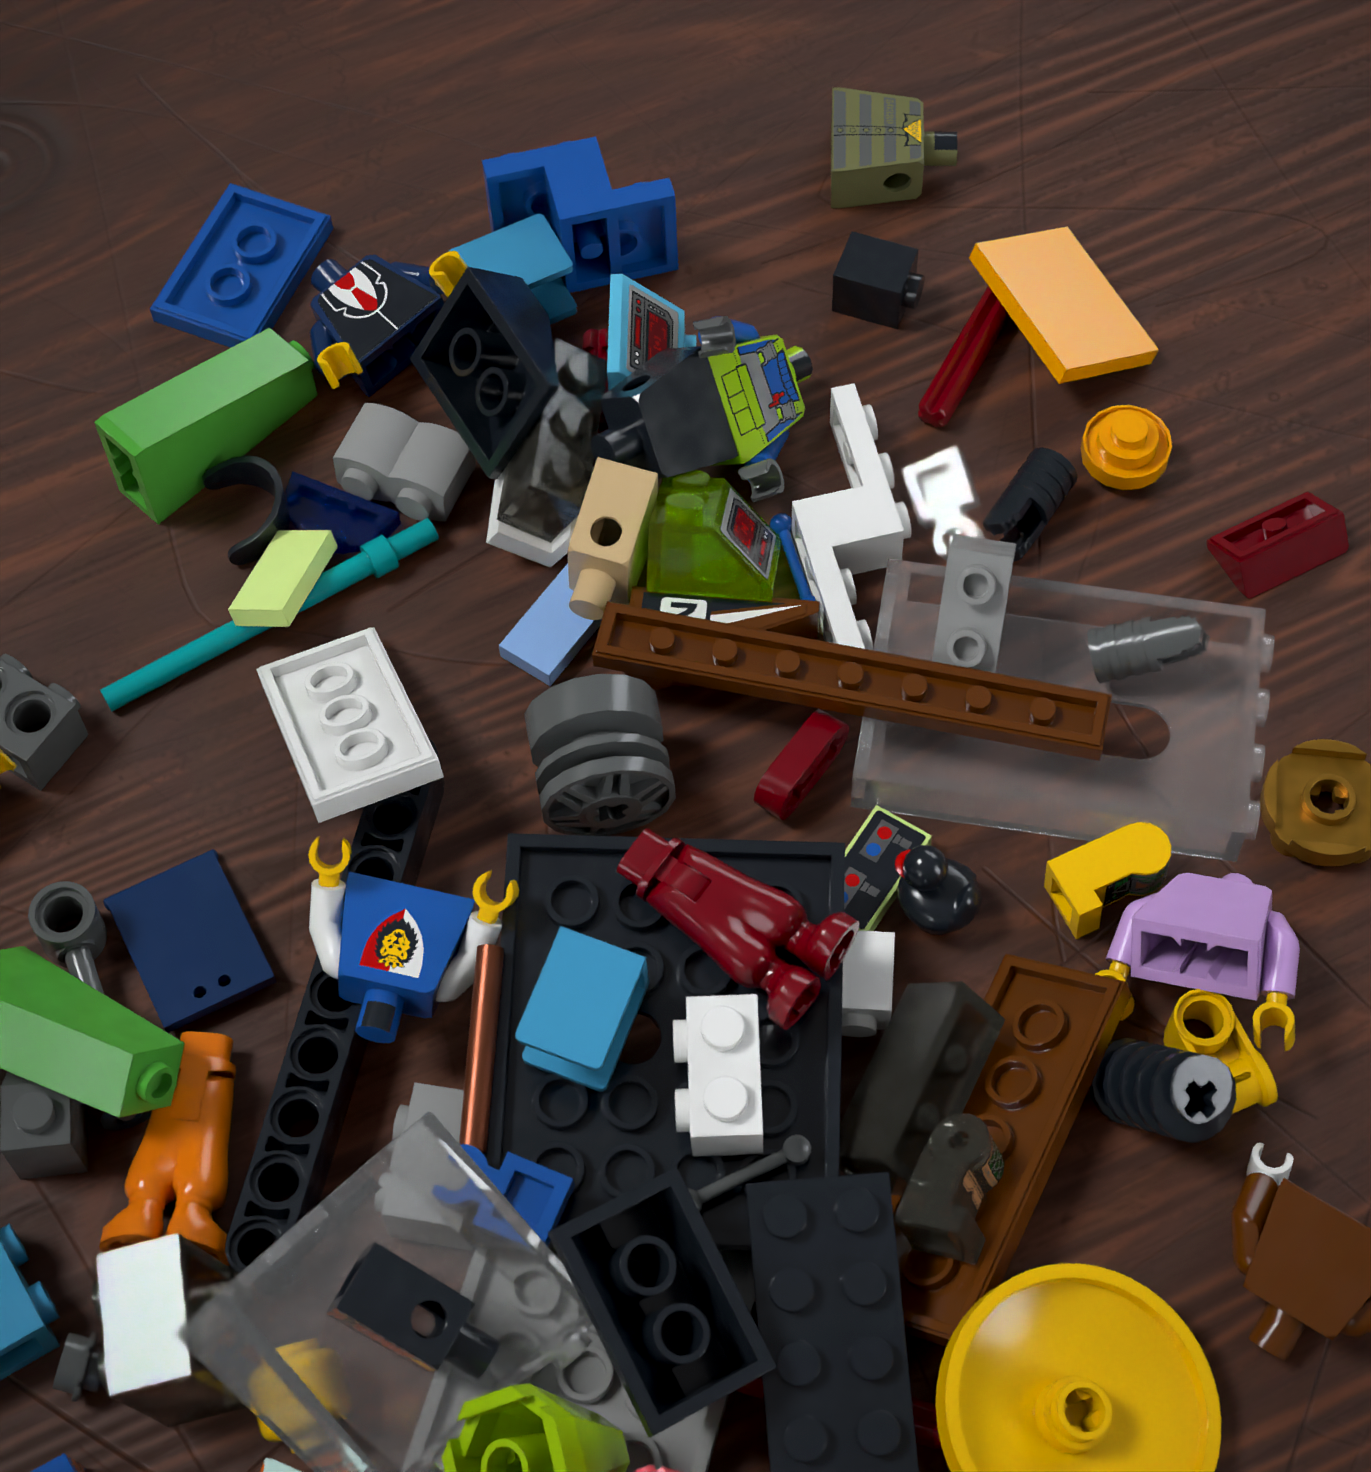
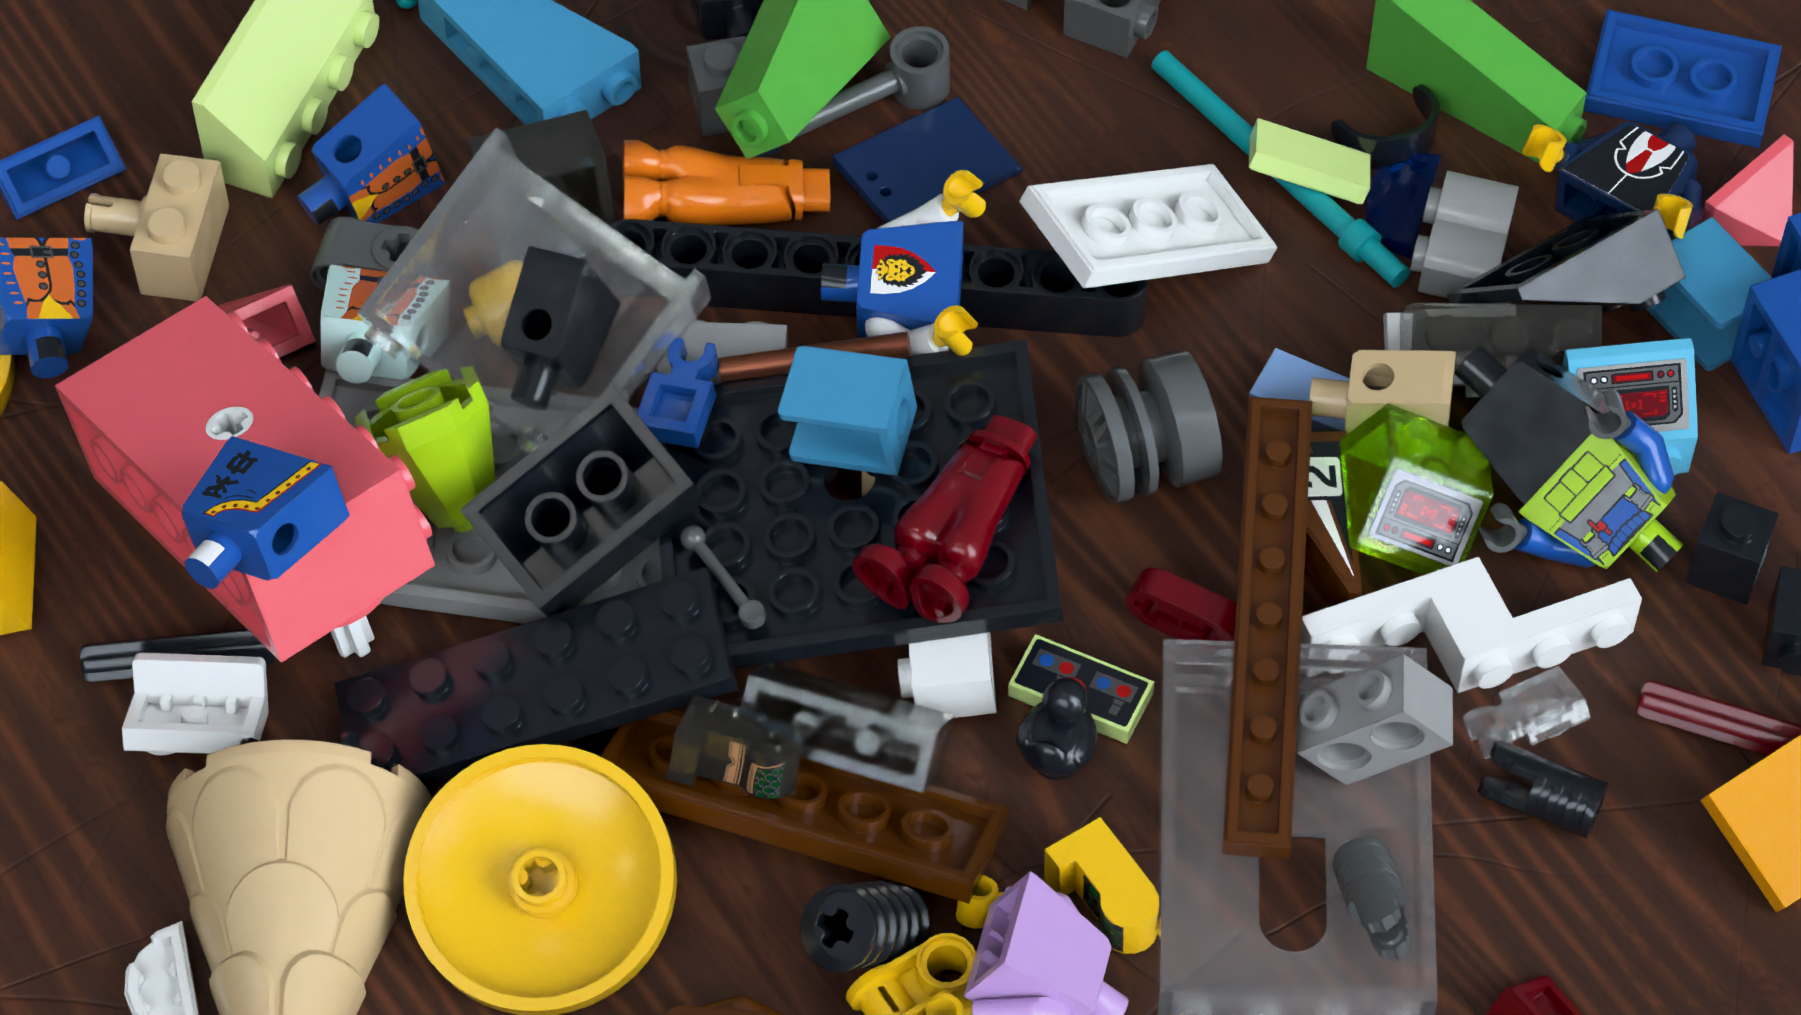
camera: 80 degrees right, 5 degrees down
(401, 228) = (1757, 199): none -> coral slope
(723, 1074) = (799, 529): white brick -> none
(796, 309) = (1732, 548): none -> black brick
(1126, 447) = (1641, 879): light orange plate -> none

